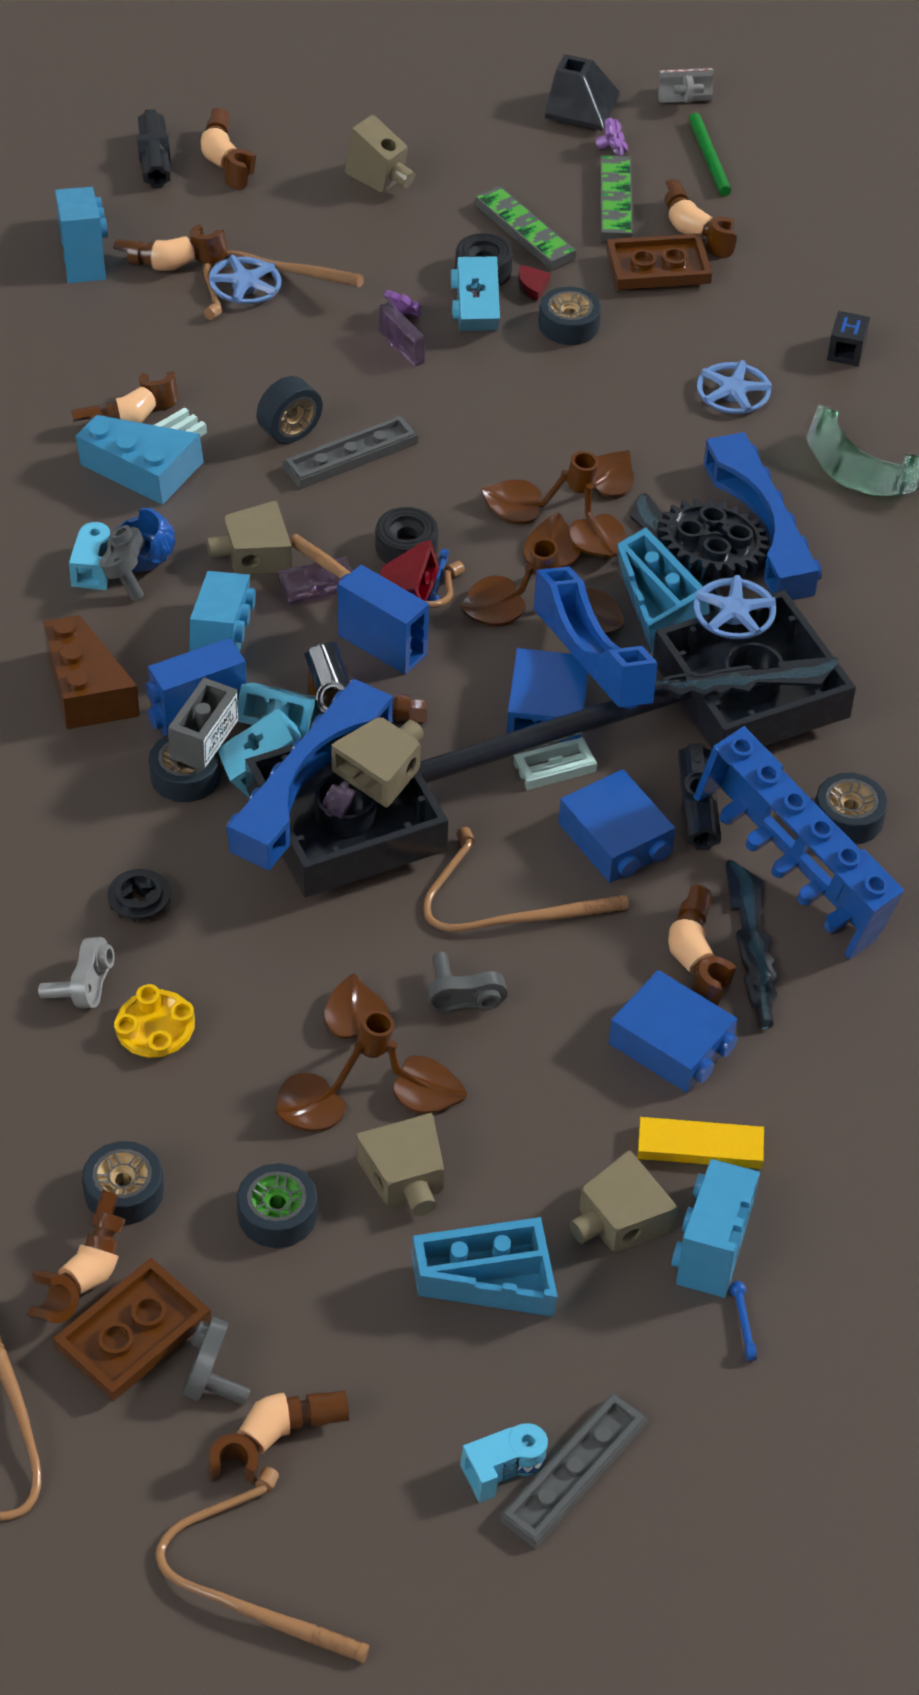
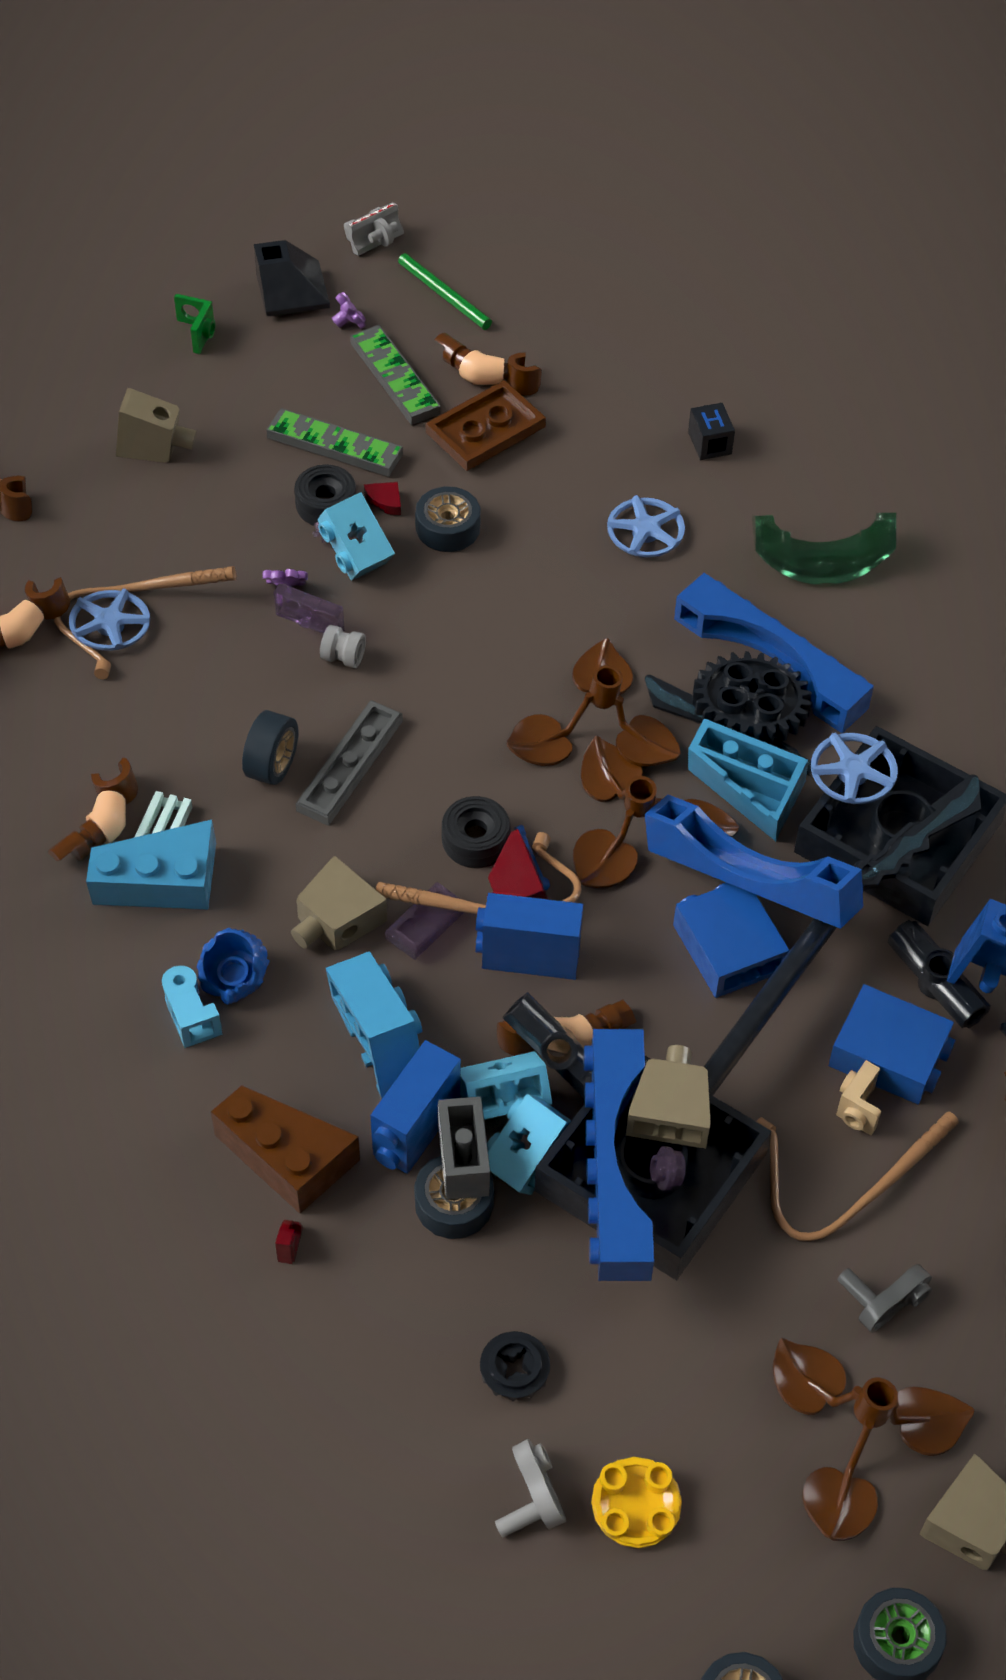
camera: 30 degrees left, 5 degrees up
(39, 736) = (288, 1241): none -> dark red tile
(123, 557) = (230, 995): dark grey piece -> none
(408, 369) = (342, 646): none -> light grey wheel
(484, 102) = (203, 324): none -> green bracket
(557, 767) = (776, 1033): light aqua tile -> none
(558, 846) = (853, 1105): none -> tan bracket

